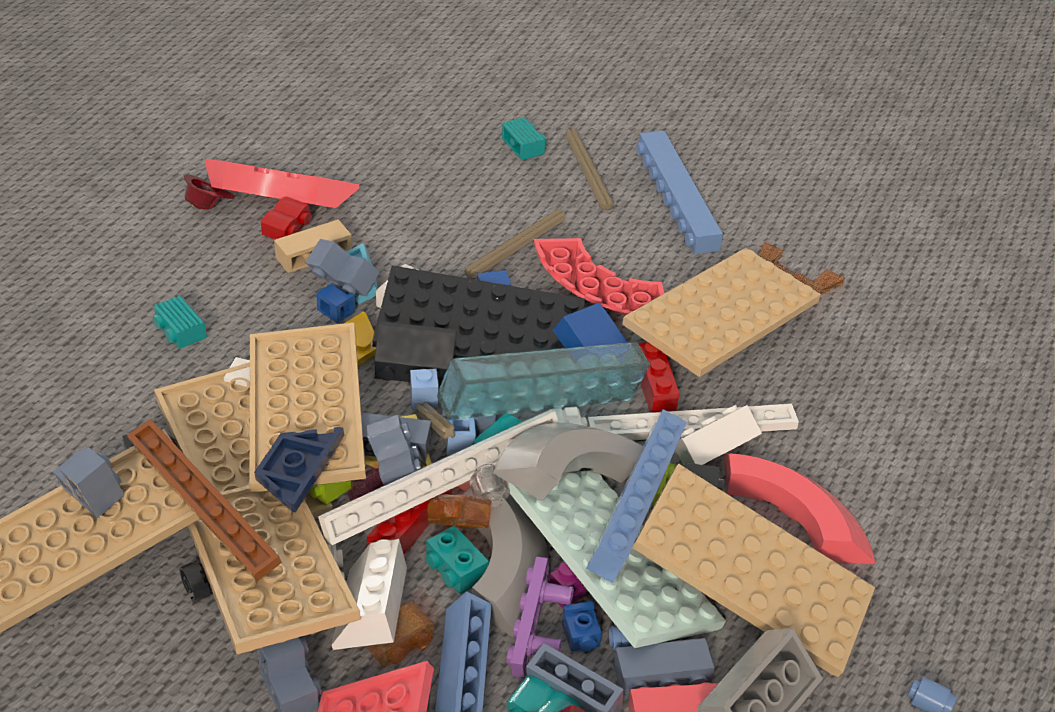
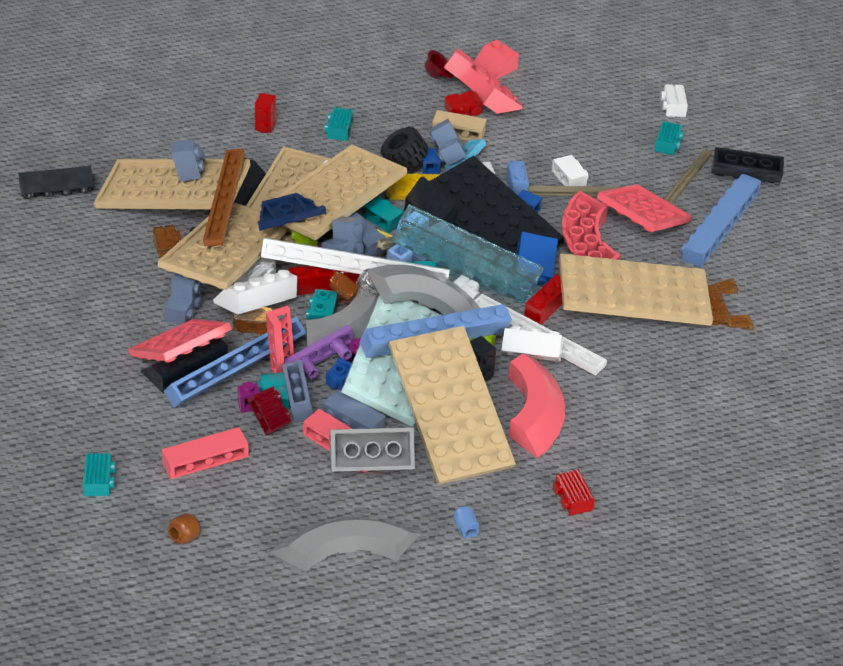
camera: 45 degrees right, 0 degrees up
(82, 361) = (265, 113): none -> red brick
(165, 613) = (165, 238): none -> clear orange brick
(256, 147) = (497, 59): none -> coral slope
(292, 293) = (405, 147): none -> black tyre
(377, 396) = (382, 214): none -> teal brick
(449, 262) = (517, 176): none -> medium blue brick
(478, 98) = (674, 100): none -> white brick
(485, 227) = (569, 171): none -> white brick
(506, 641) = (276, 337): none -> coral fence
(610, 220) = (644, 207): none -> coral plate
(630, 121) = (757, 165): none -> black slope
(966, 574) = (573, 492): none -> red brick

